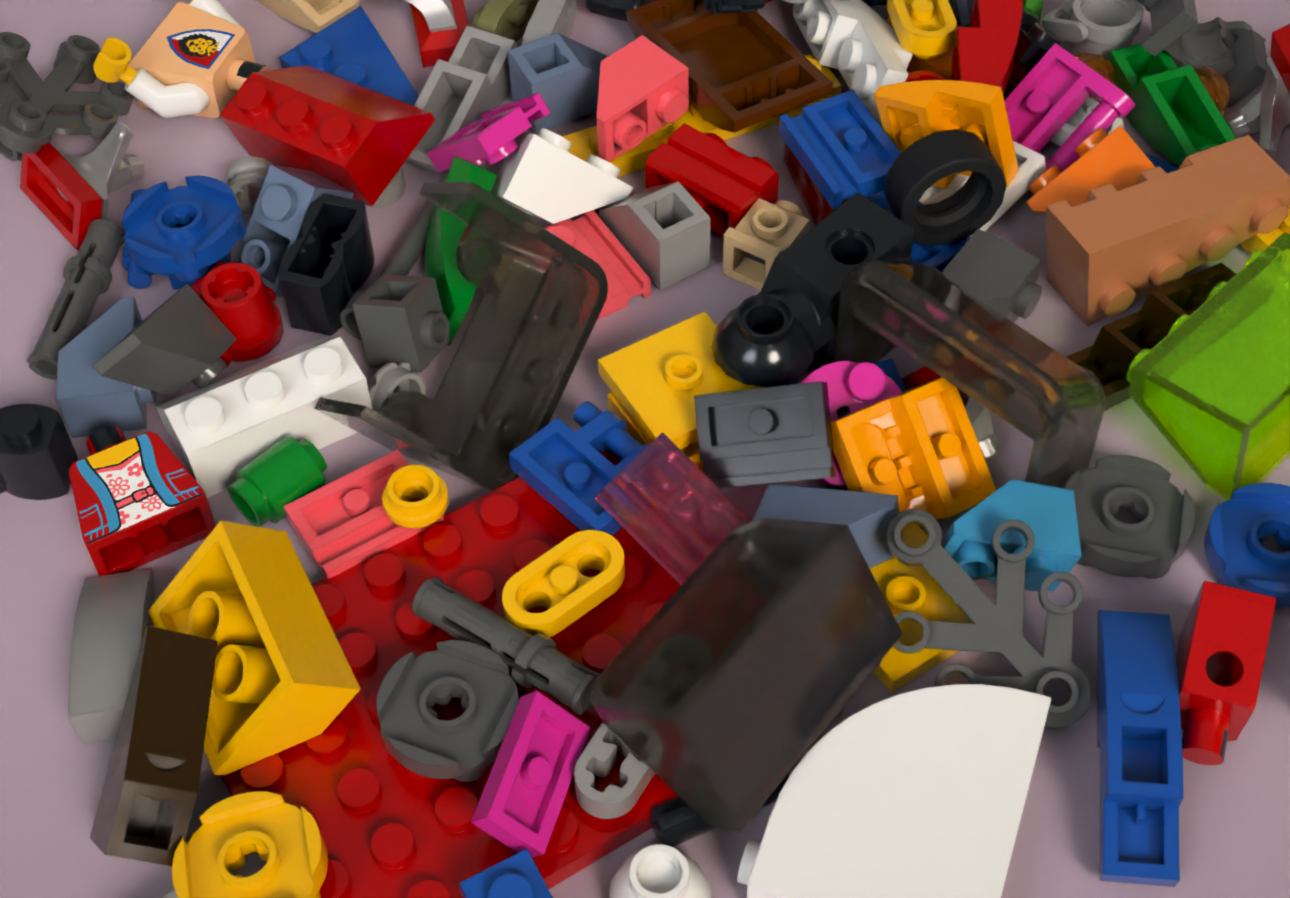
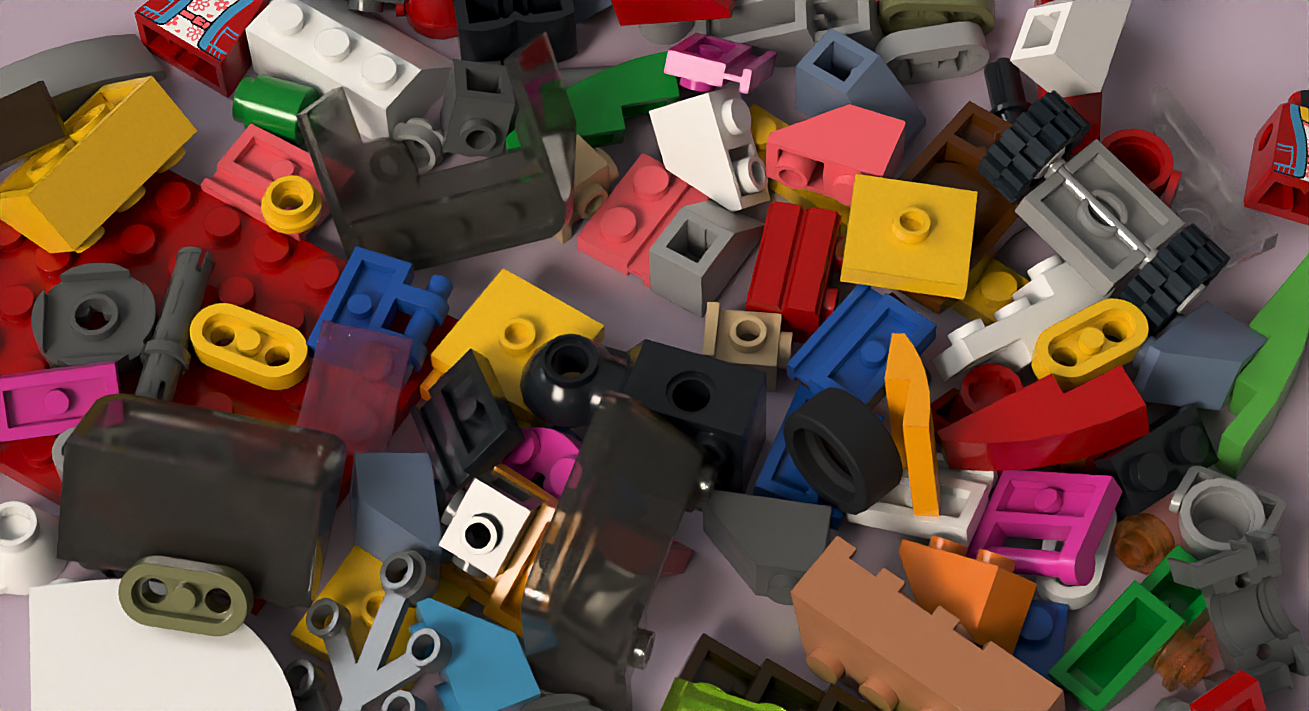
camera: 65 degrees right, 5 degrees up
(758, 73) = (909, 236): none -> yellow plate
(849, 733) = (189, 596): none -> olive plate
(896, 448) = (488, 523): none -> brick

